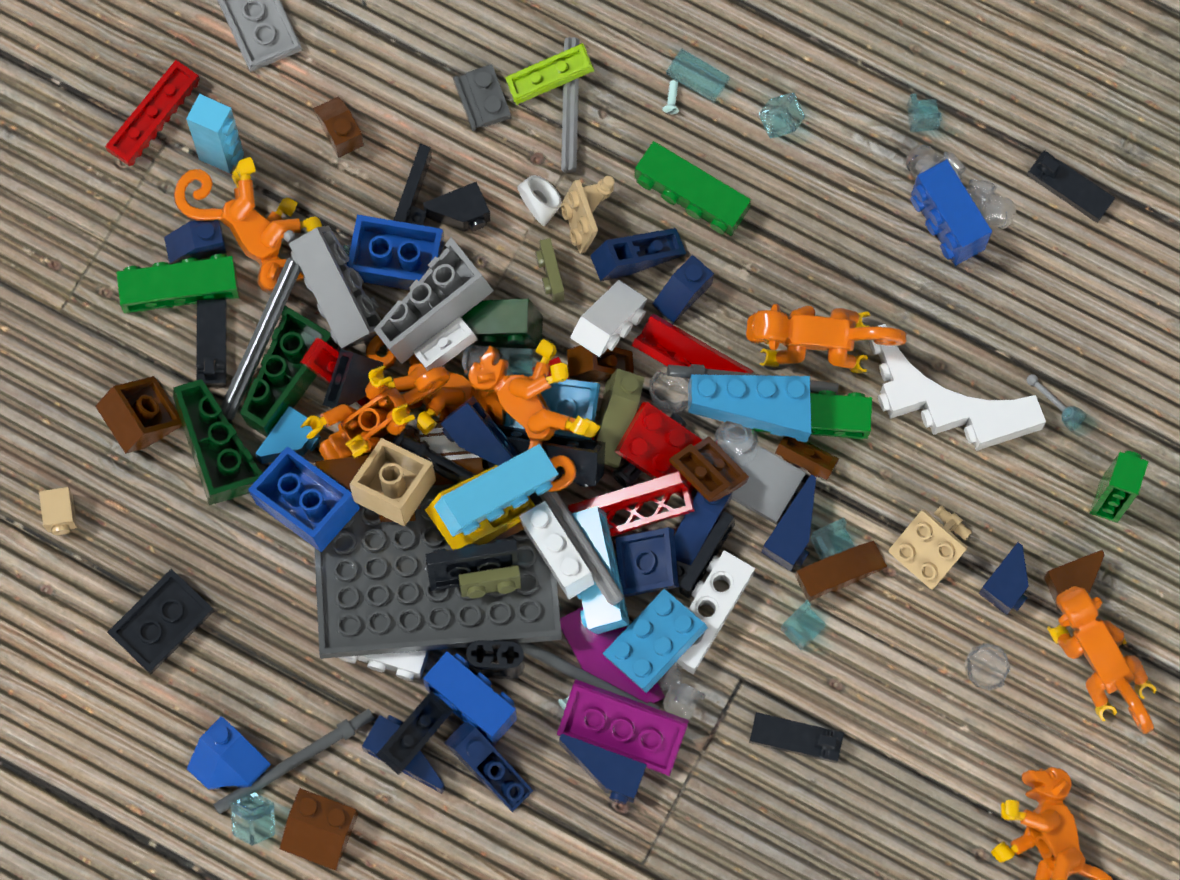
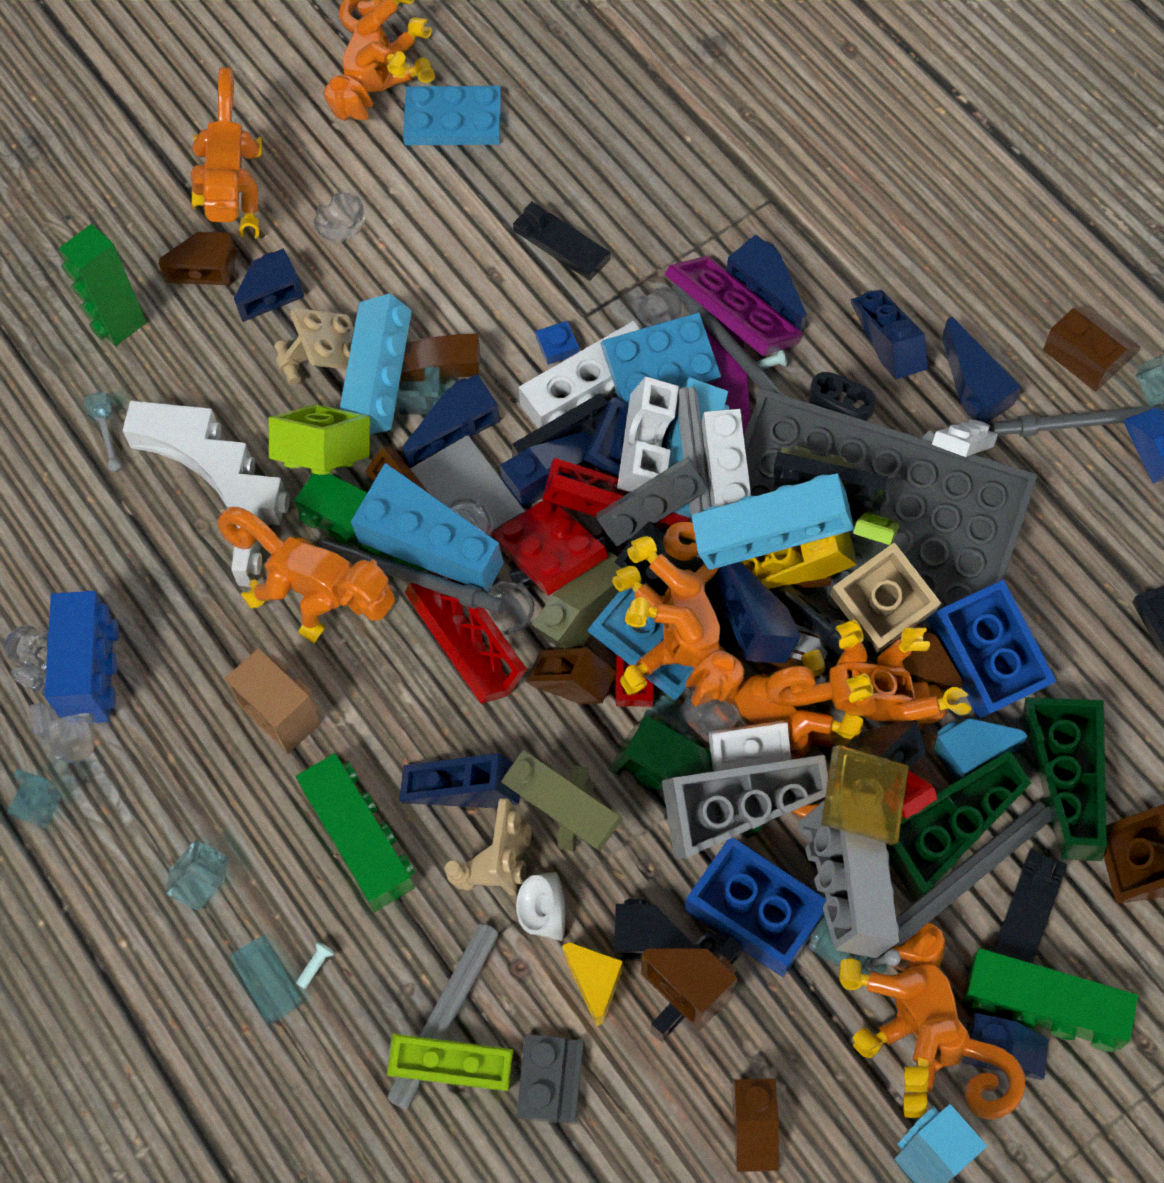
camera: 150 degrees left, 10 degrees down
(349, 328) = (865, 795): none -> clear yellow tile
(387, 670) = (965, 438): none -> white plate
(414, 167) = (691, 981): none -> reddish brown slope
(414, 732) = (959, 371): black hinge -> none
(419, 532) = (876, 528): none -> lime tile
(471, 697) = (877, 362): blue brick -> none
(484, 166) = (595, 977): none -> yellow slope
(559, 255) = (561, 800): none -> olive slope
(599, 498) = (652, 501): none -> dark grey plate
(609, 319) = (537, 701): white brick -> none
(636, 573) = (649, 414): none -> white arch
(683, 289) = (430, 717): dark blue slope -> none
(709, 469) = (515, 488): reddish brown slope -> none
(750, 639) = (557, 342): none -> blue plate
(796, 243) = (273, 699): none -> medium nougat brick
(803, 626) = (499, 332): clear light blue panel -> none
(878, 540) = (376, 360): none -> medium azure brick
(879, 449) = (319, 438): none -> lime brick
(955, 824) = (452, 115): none -> dark azure plate

